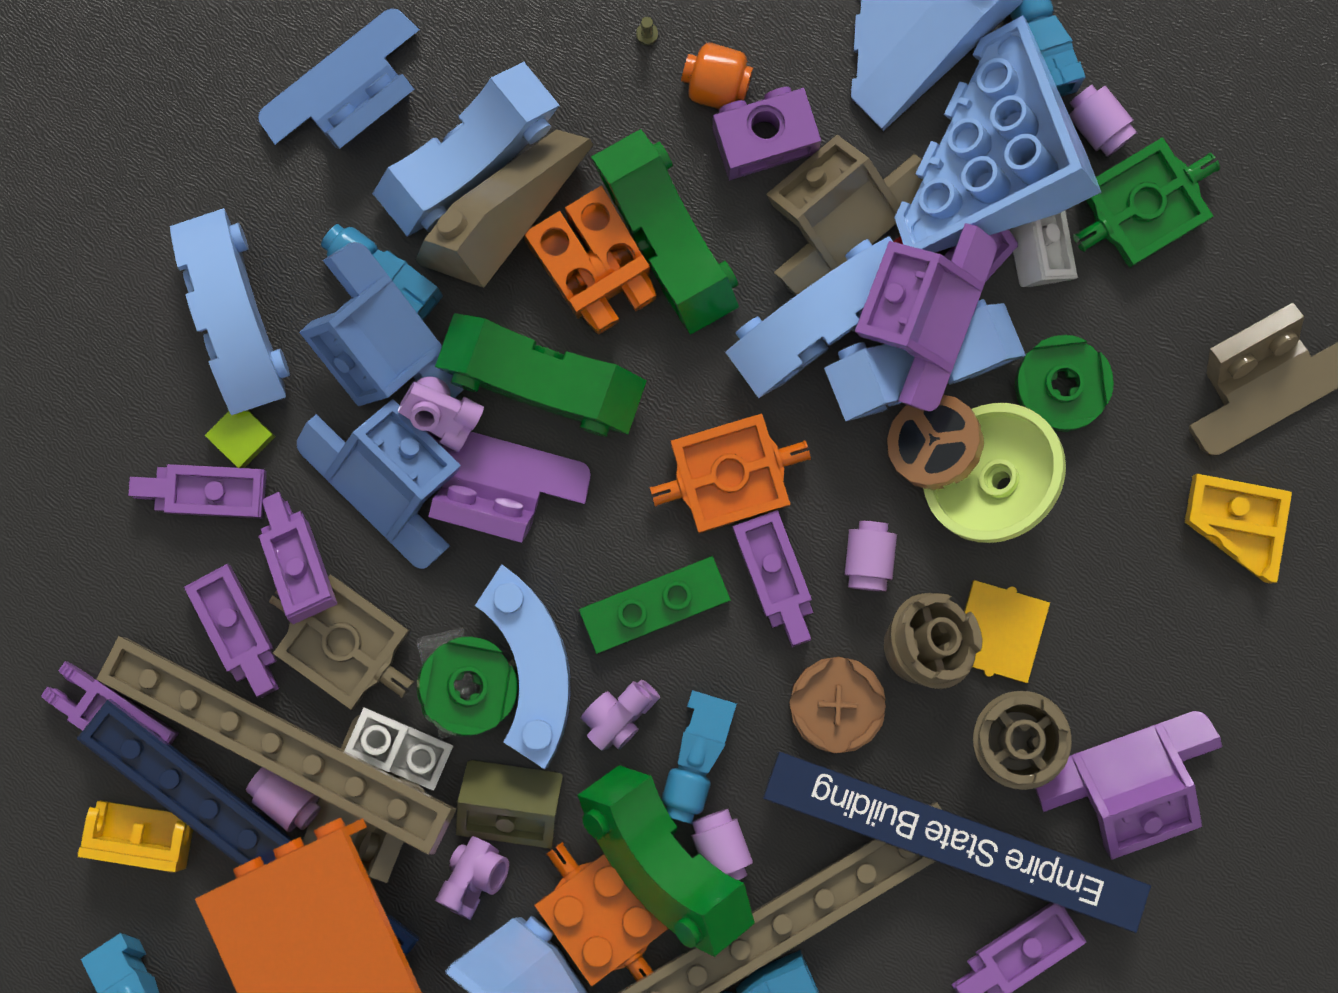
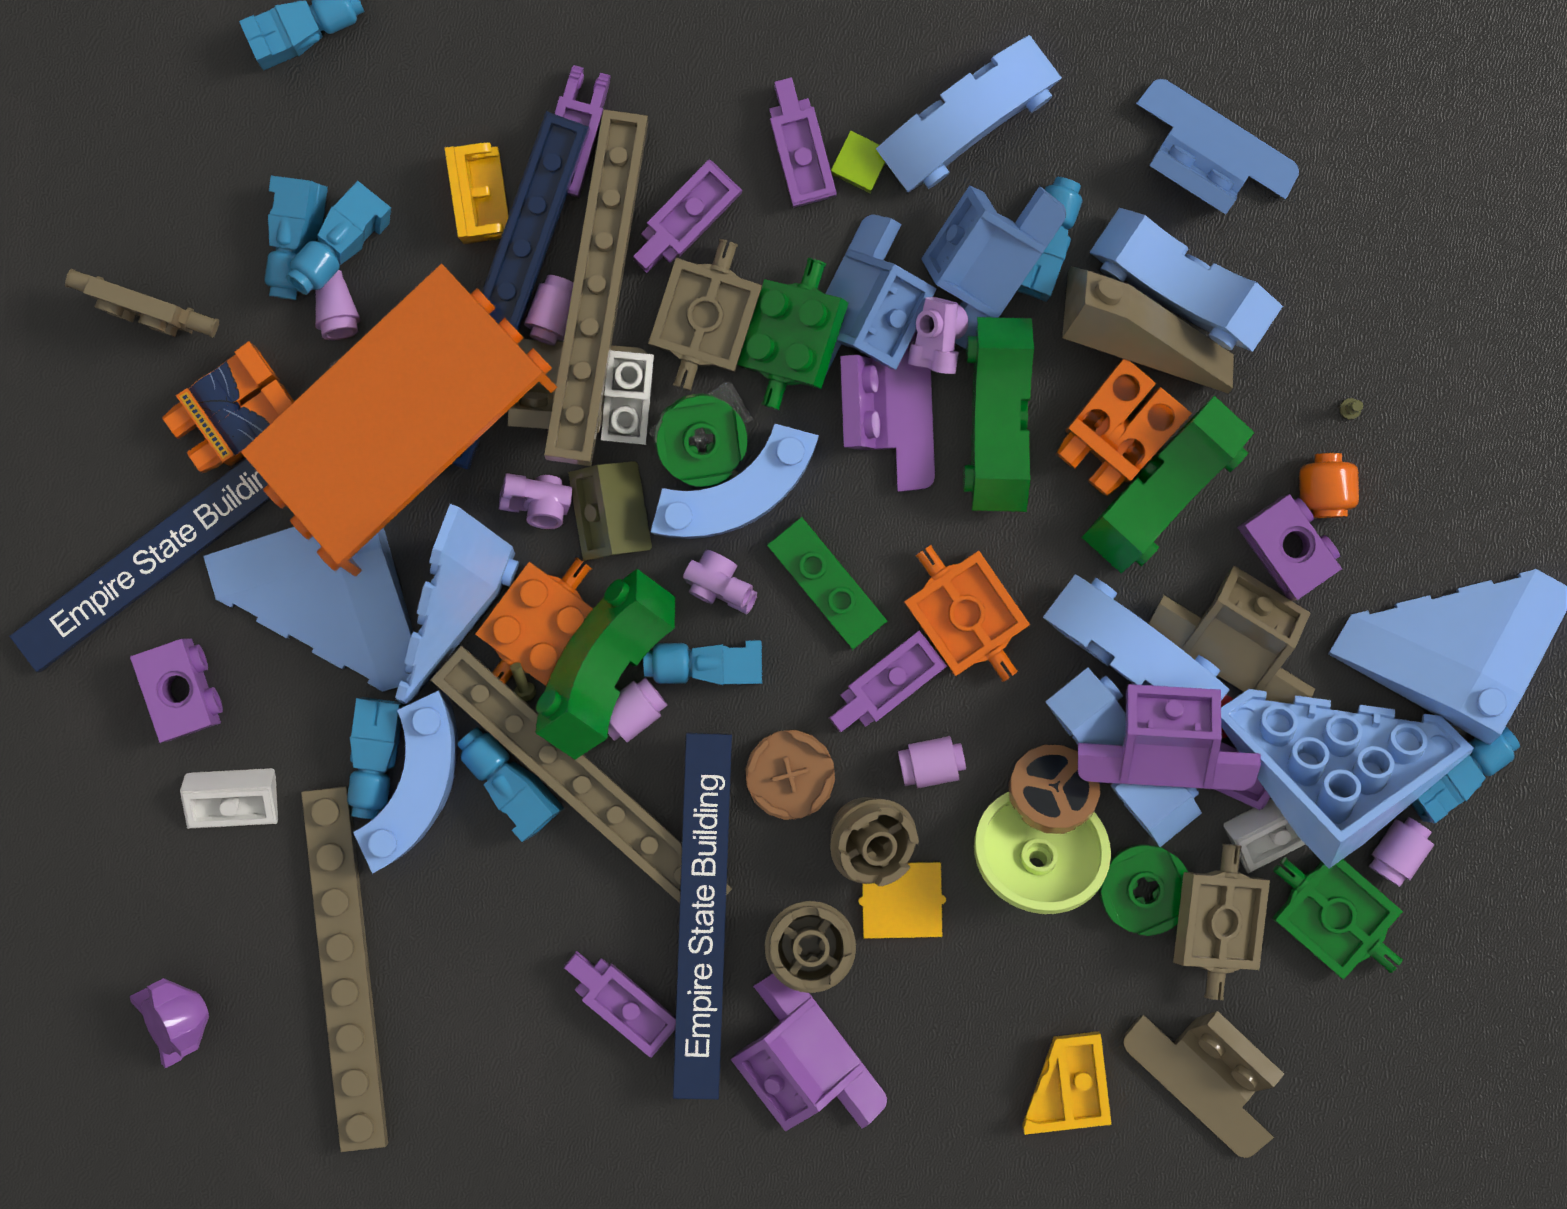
camera: 75 degrees right, 5 degrees up
(295, 561) = (763, 250): medium lavender hinge -> none
(390, 558) = (793, 333): none -> green plate
(664, 952) = (524, 689): none -> olive piece
(1119, 317) = (1221, 921): none -> dark tan plate

